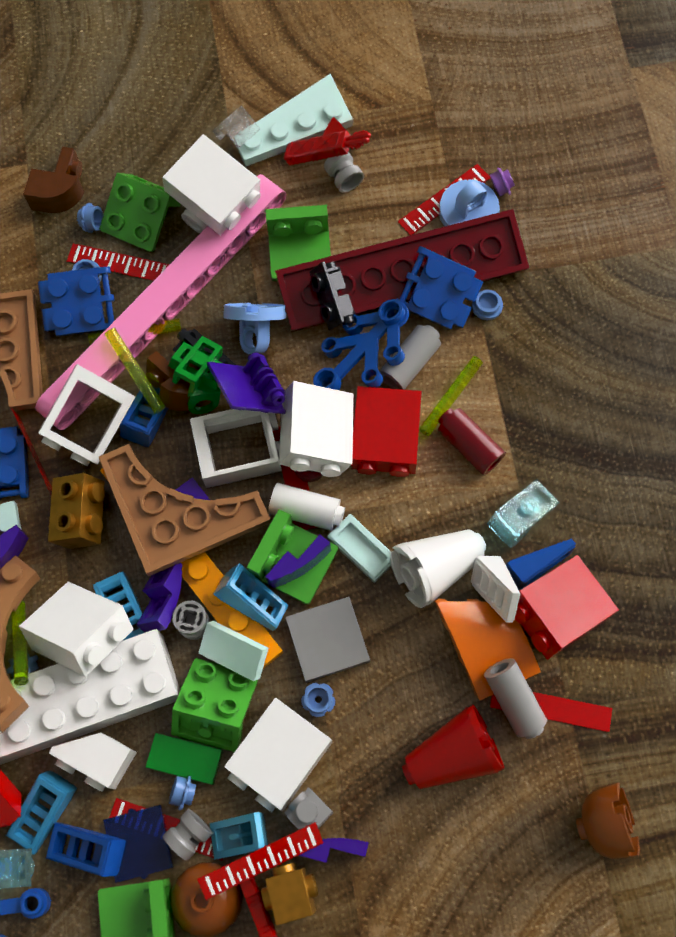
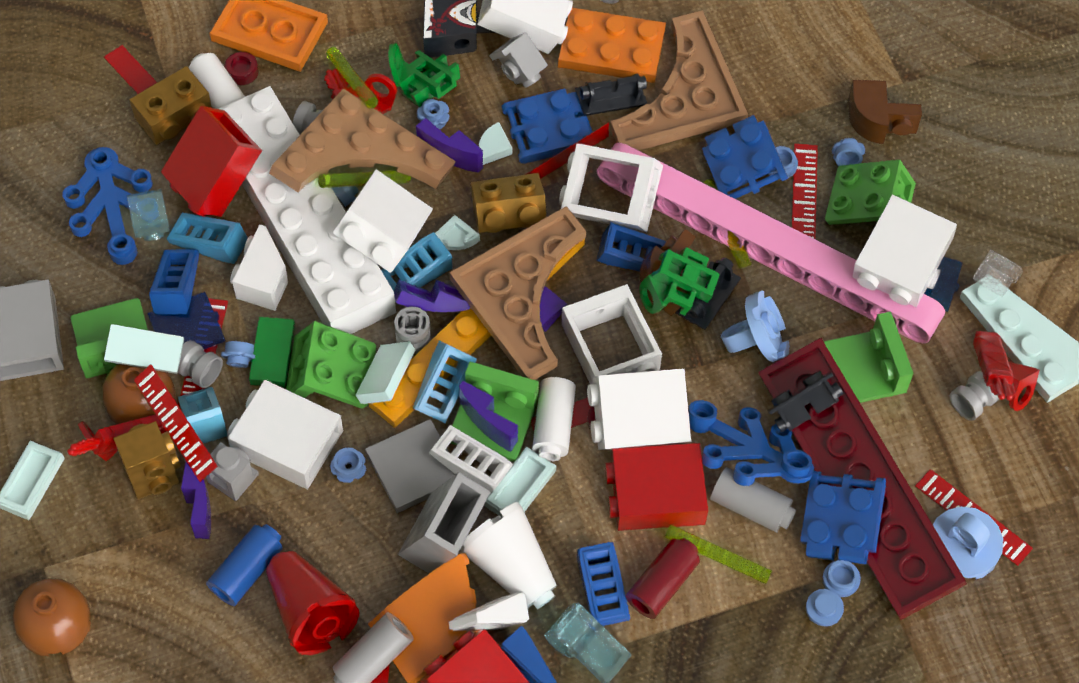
camera: 75 degrees right, 10 degrees down
(94, 566) = (457, 234): none -> light aqua tile
(135, 370) = (671, 223): clear neon green bar -> none
(174, 886) = (143, 348): none -> light aqua tile
(250, 386) = (669, 325): dark purple hinge -> none
(348, 566) = (487, 457): none -> white slope
(405, 613) = (444, 523): none -> light grey brick
(406, 808) = (245, 564): none -> blue brick
(458, 504) = (597, 554): none -> blue slope
(502, 182) = (1008, 573): medium lavender plate -> none
(511, 322) = (824, 607): none -> medium blue plate

